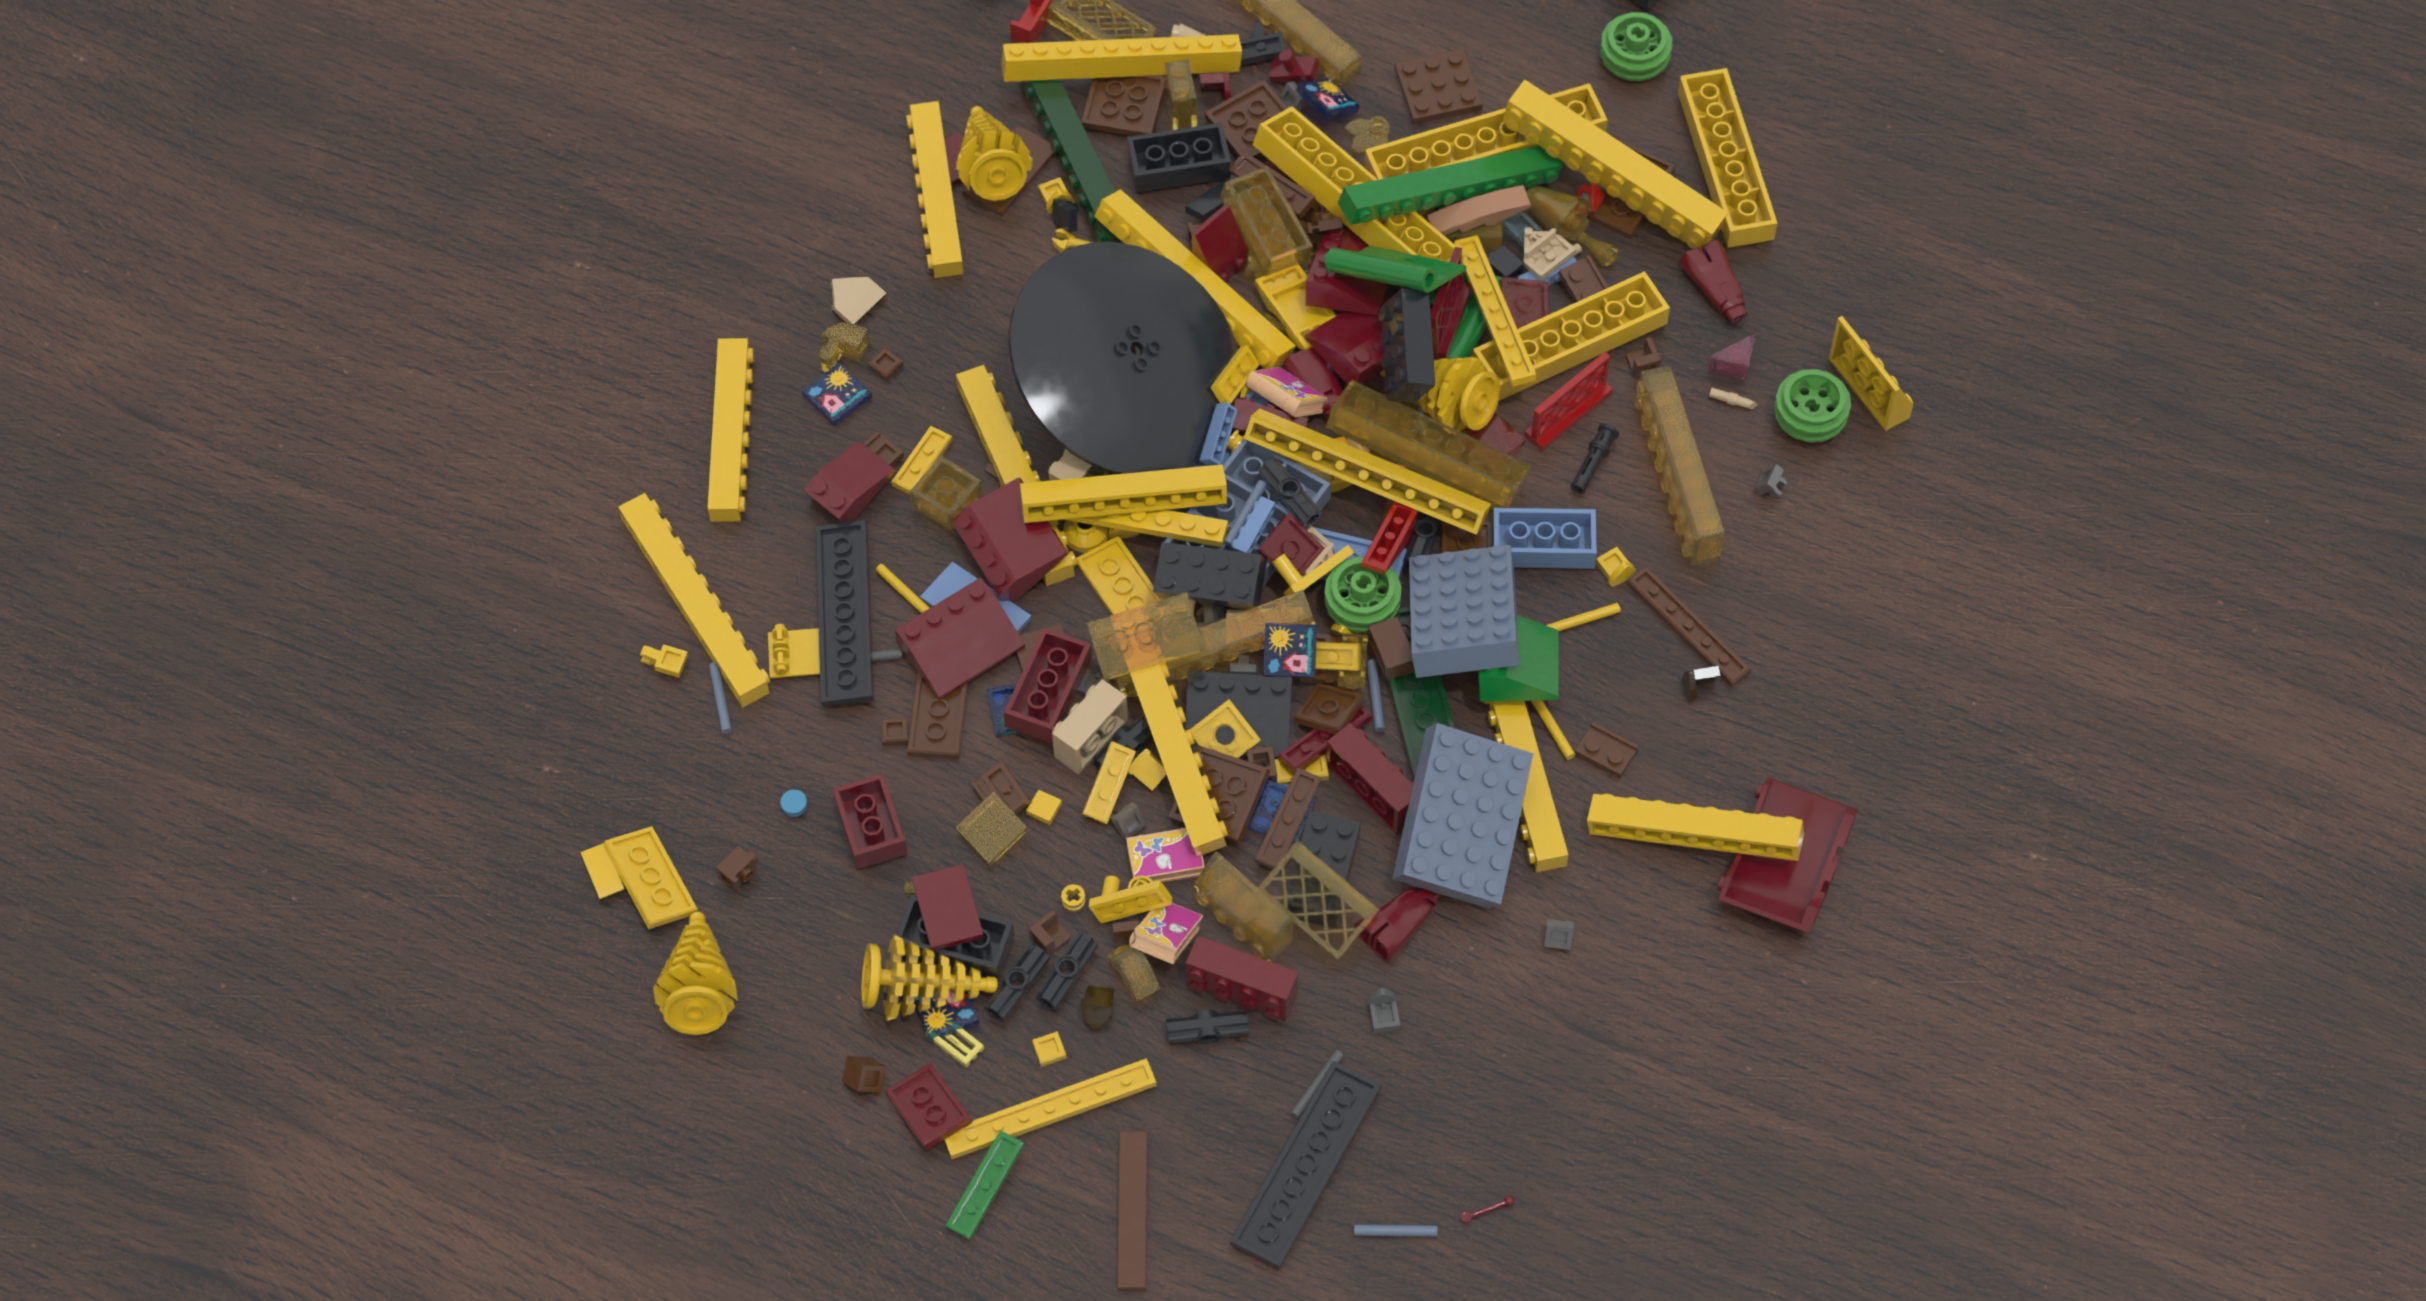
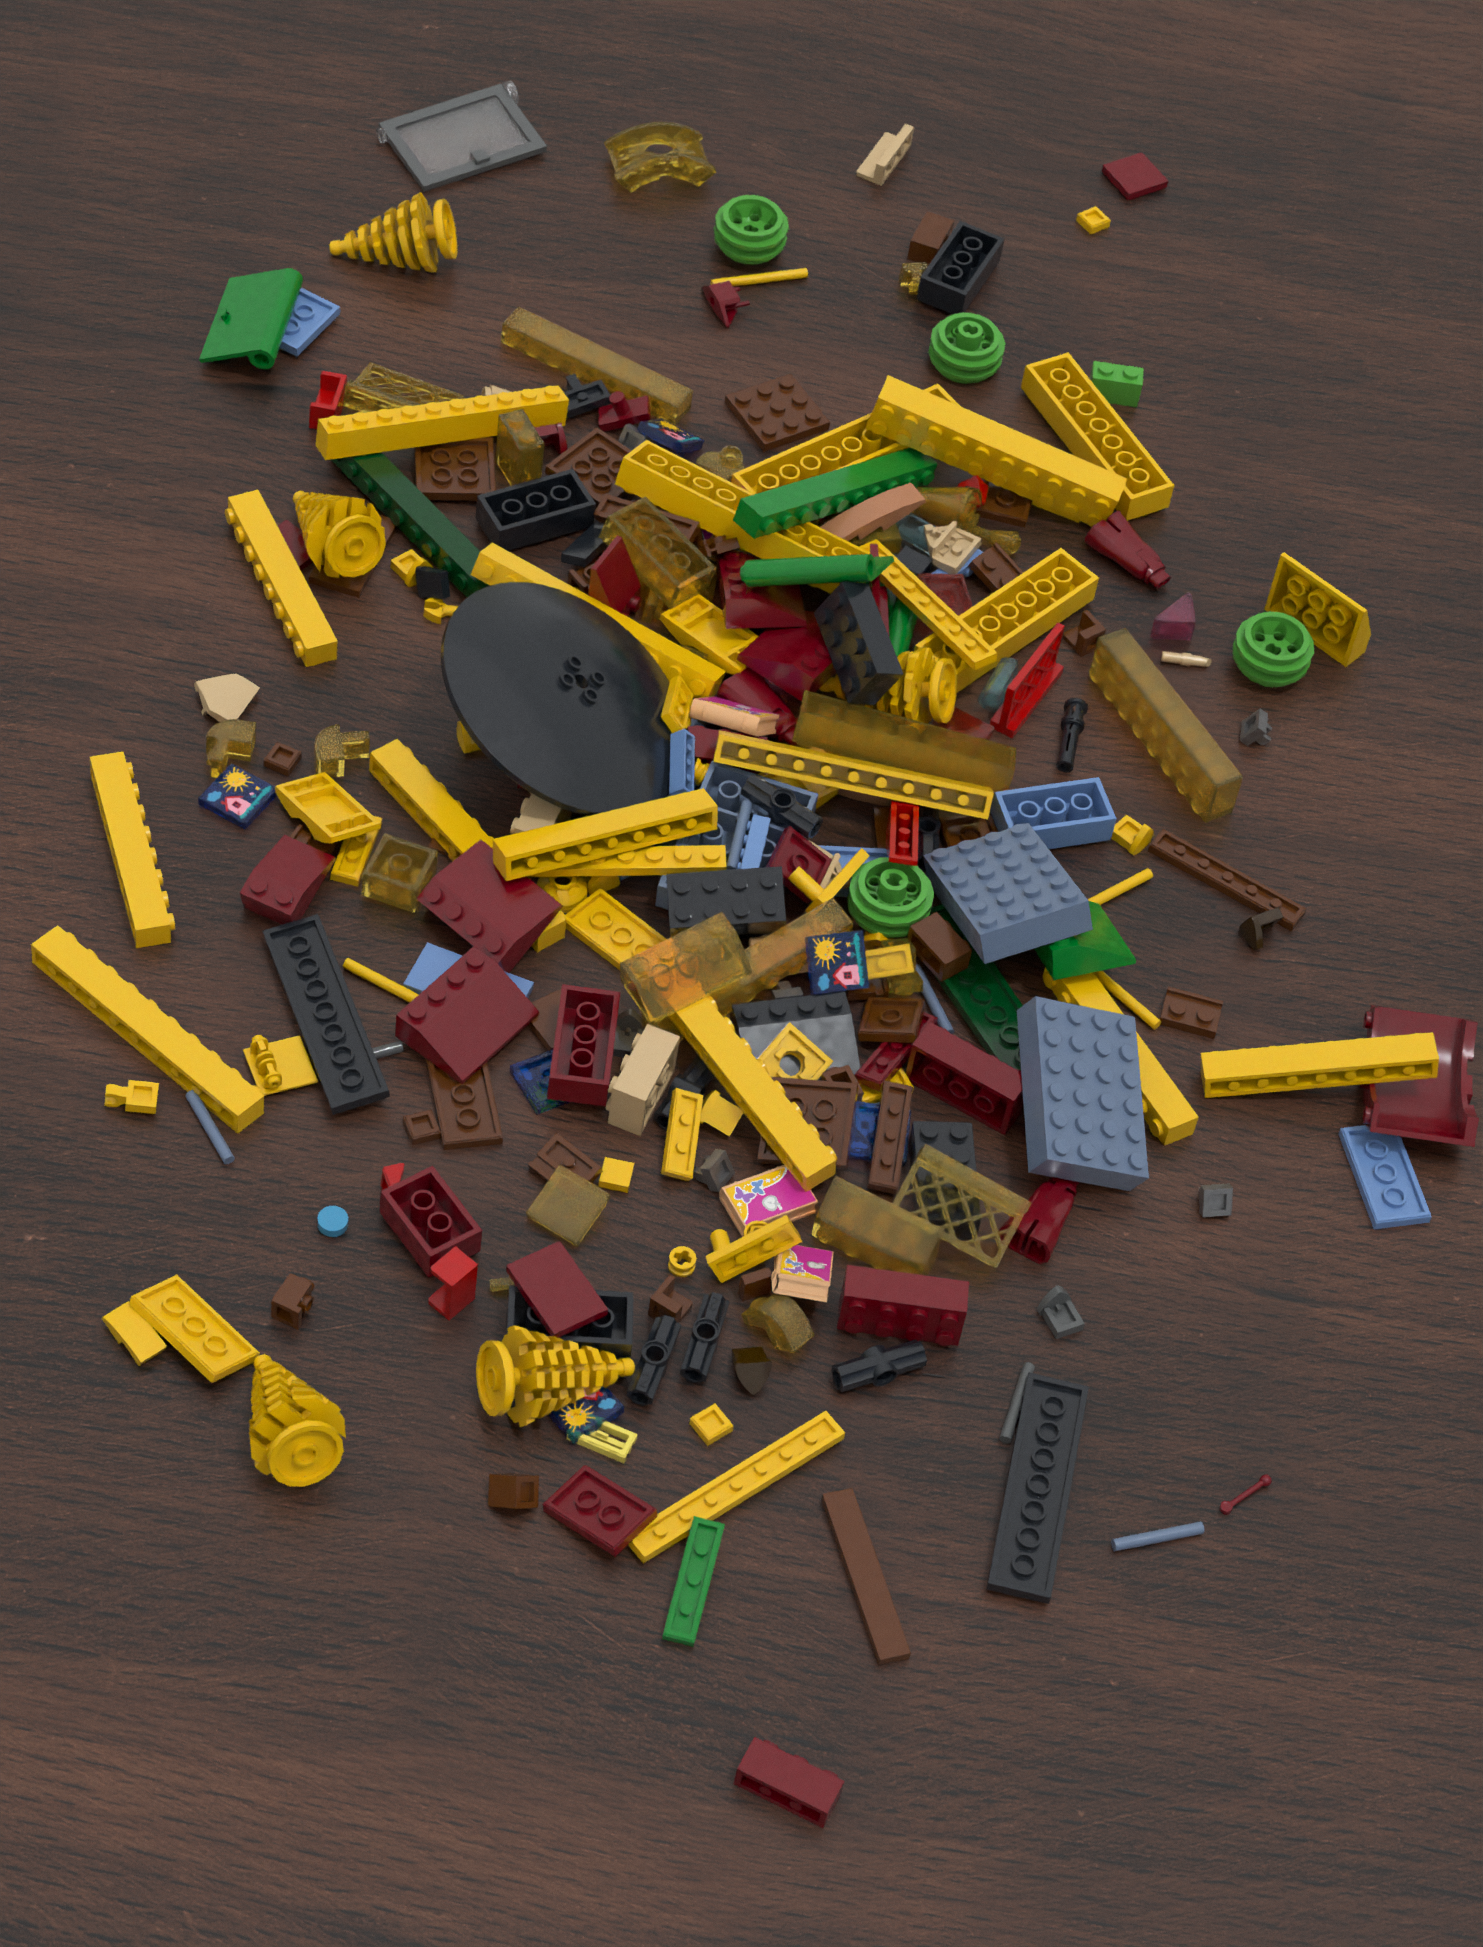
camera: 25 degrees left, 10 degrees down
(853, 773) = (392, 1175): none -> red slope
(869, 880) = (459, 1279): none -> red panel
(903, 420) = (325, 808): none -> yellow slope
(928, 362) = (334, 747): none -> clear yellow brick
(1547, 389) = (995, 689): none -> clear light blue brick
(1724, 944) = (1384, 1178): none -> medium blue tile
(1767, 104) = (1118, 382): none -> bright green brick

